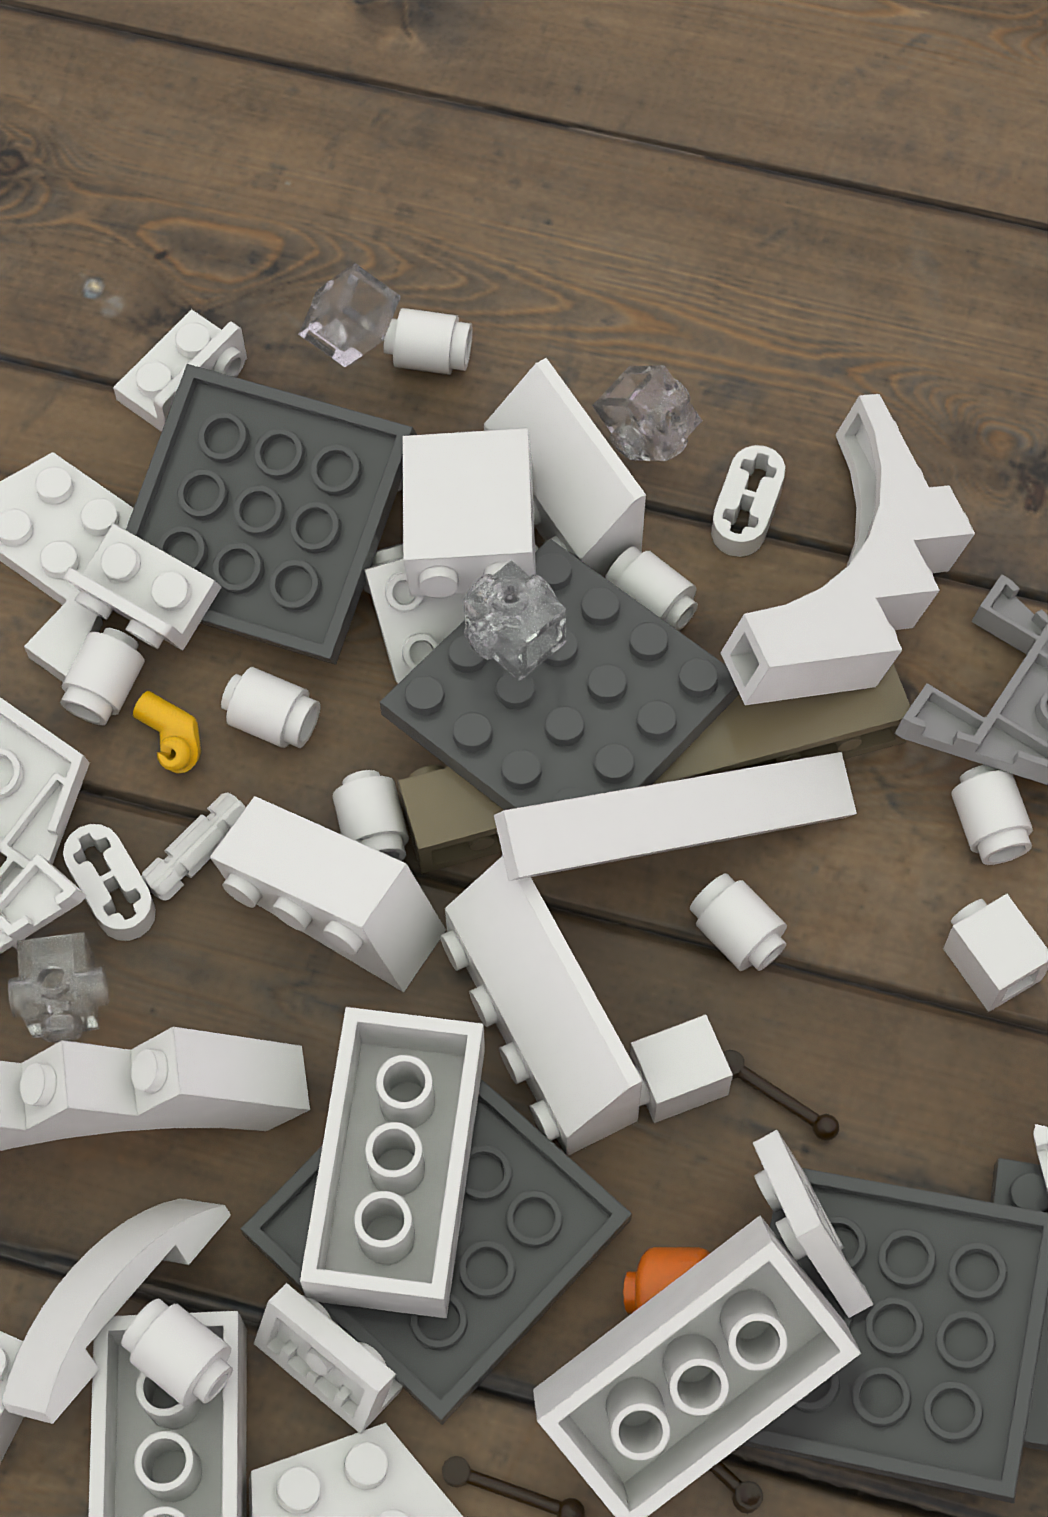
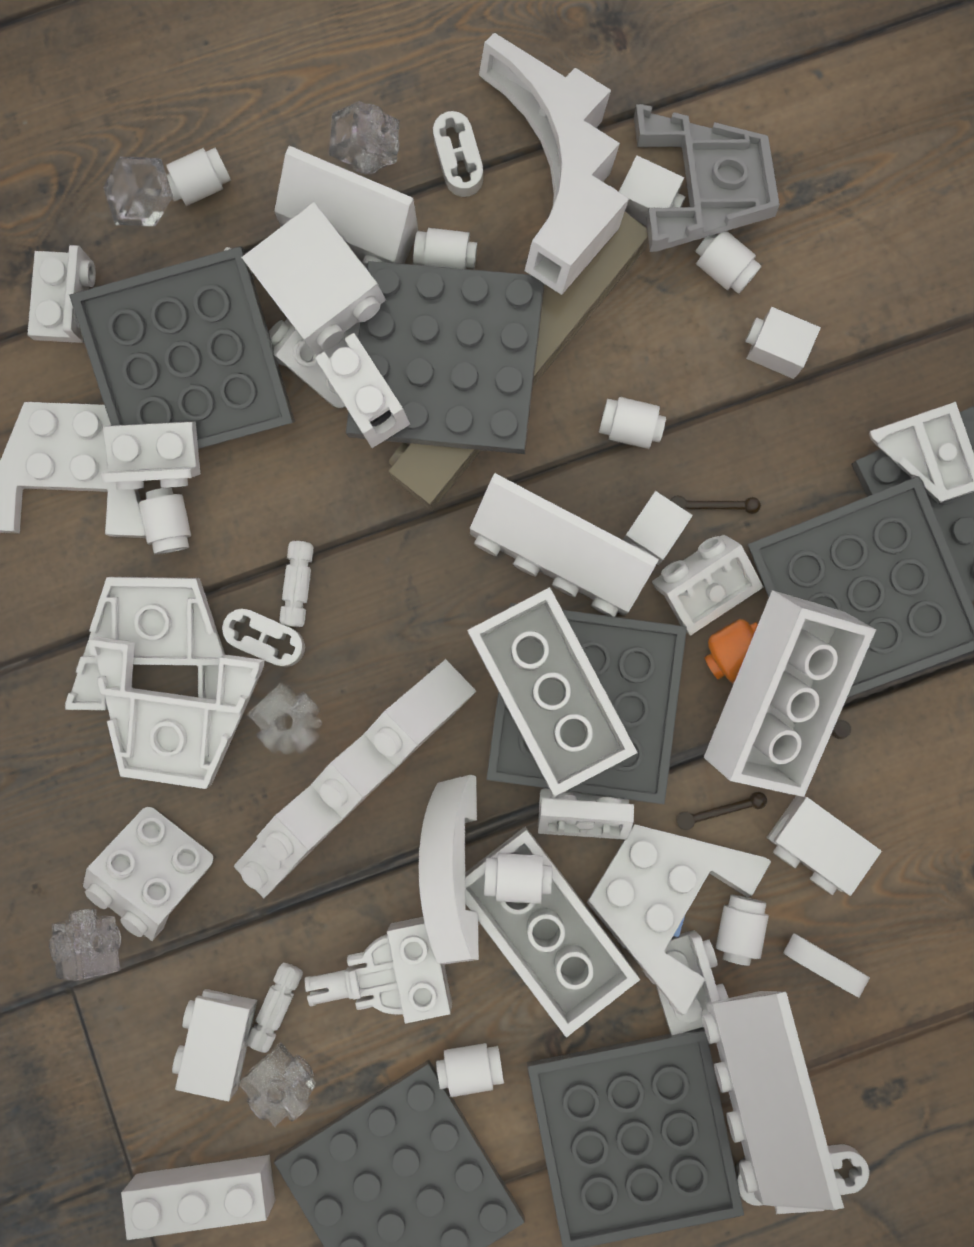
camera: 30 degrees left, 20 degrees up
(177, 731) = (234, 524): yellow arm -> none
(270, 708) = (278, 474): white brick -> none
(330, 890) = (392, 561): white wedge -> none
(371, 812) = (385, 501): white brick -> none
(428, 657) = (363, 390): none -> white brick
(514, 619) = (394, 332): clear brick -> none
(673, 815) = (562, 389): white tile -> none
(694, 1181) = (708, 582): none -> white bracket
(806, 1225) = (796, 577): white wing -> none
(950, 665) = (650, 187): none -> white brick

